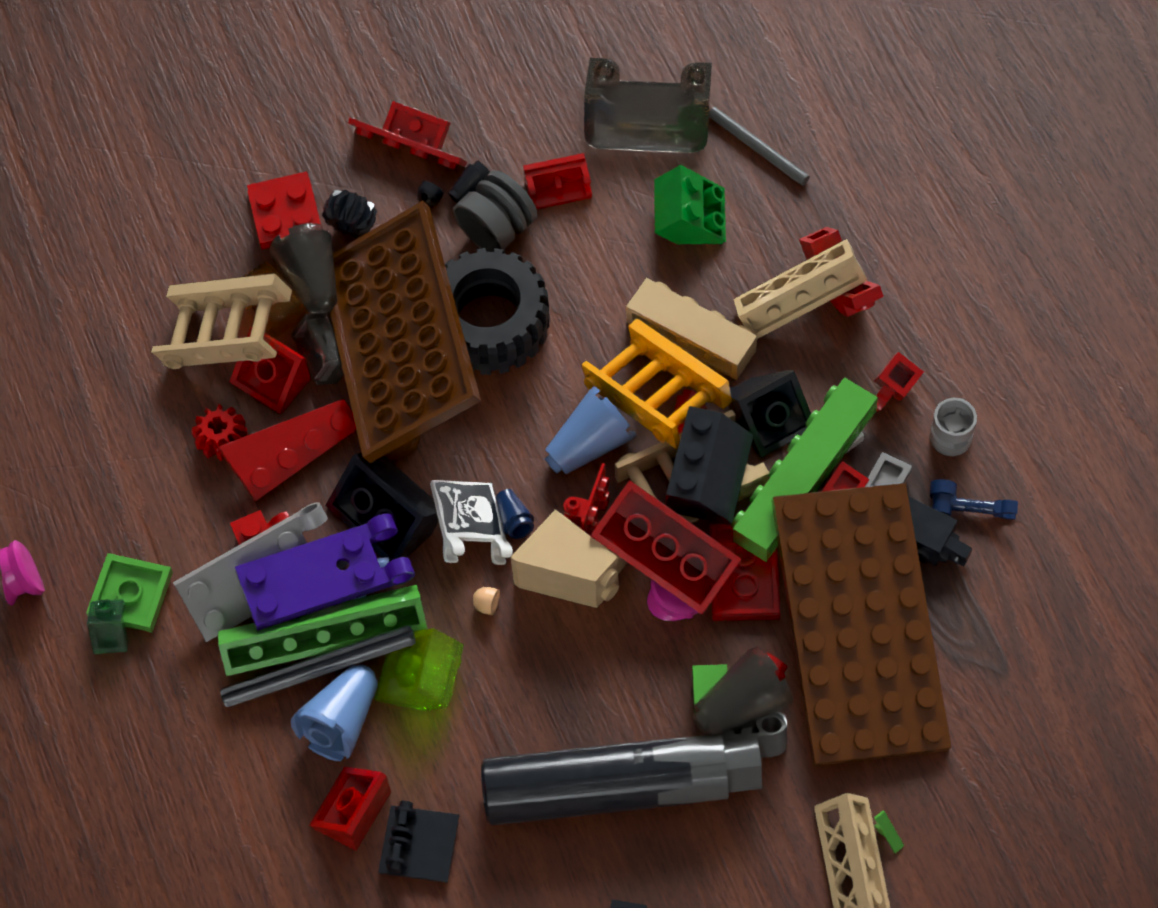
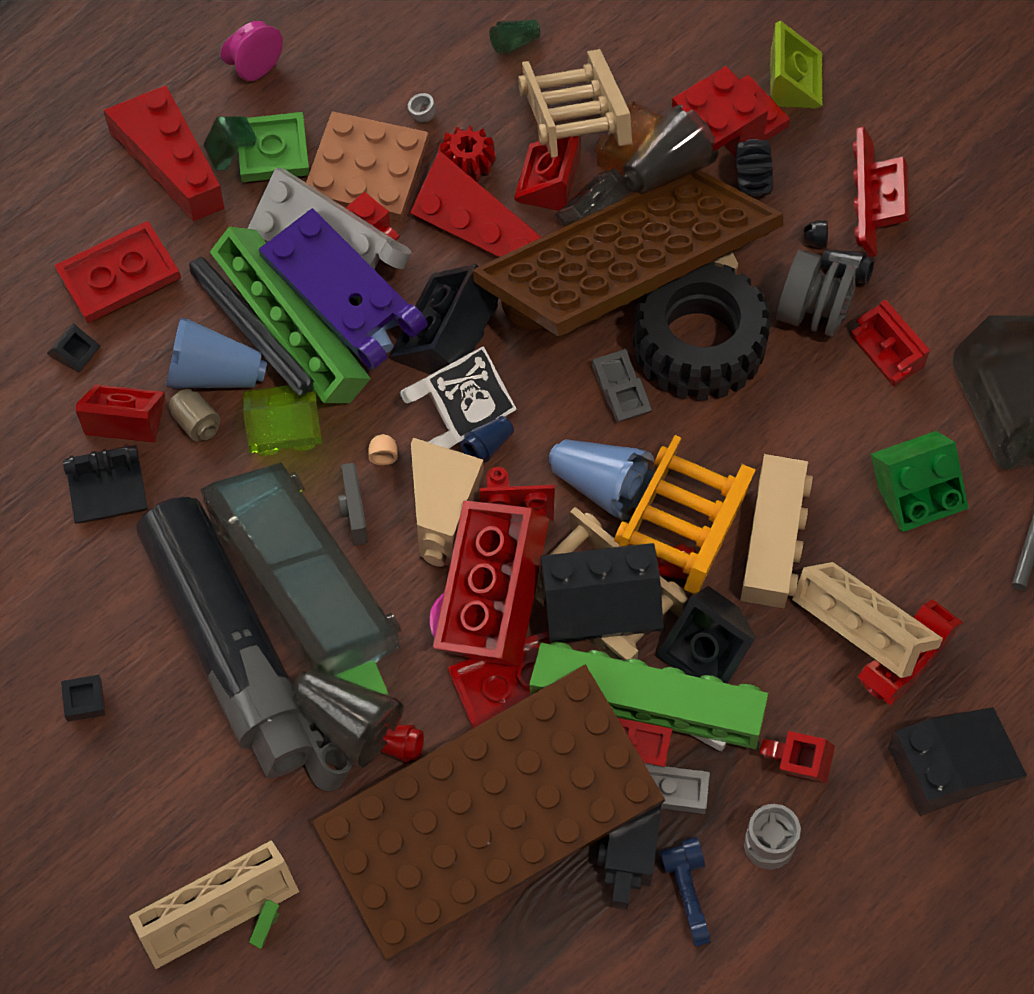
camera: 65 degrees right, 0 degrees up
(92, 681) = (164, 144): none -> red wedge
(109, 353) = (513, 34): none -> clear green cone
(153, 445) = (416, 107): none -> light grey hinge
(184, 519) = (368, 158): none -> nougat plate
(201, 768) = (117, 271): none -> red plate
(259, 151) = (794, 70): none -> lime slope
(261, 834) = (73, 348): none -> black slope
(385, 744) = (194, 415): none -> dark tan brick
(508, 395) = (621, 386): none -> dark grey slope
(531, 639) = (352, 505): none -> dark grey plate
(584, 698) = (300, 569): none -> windscreen
(933, 281) = (954, 758): none -> black slope

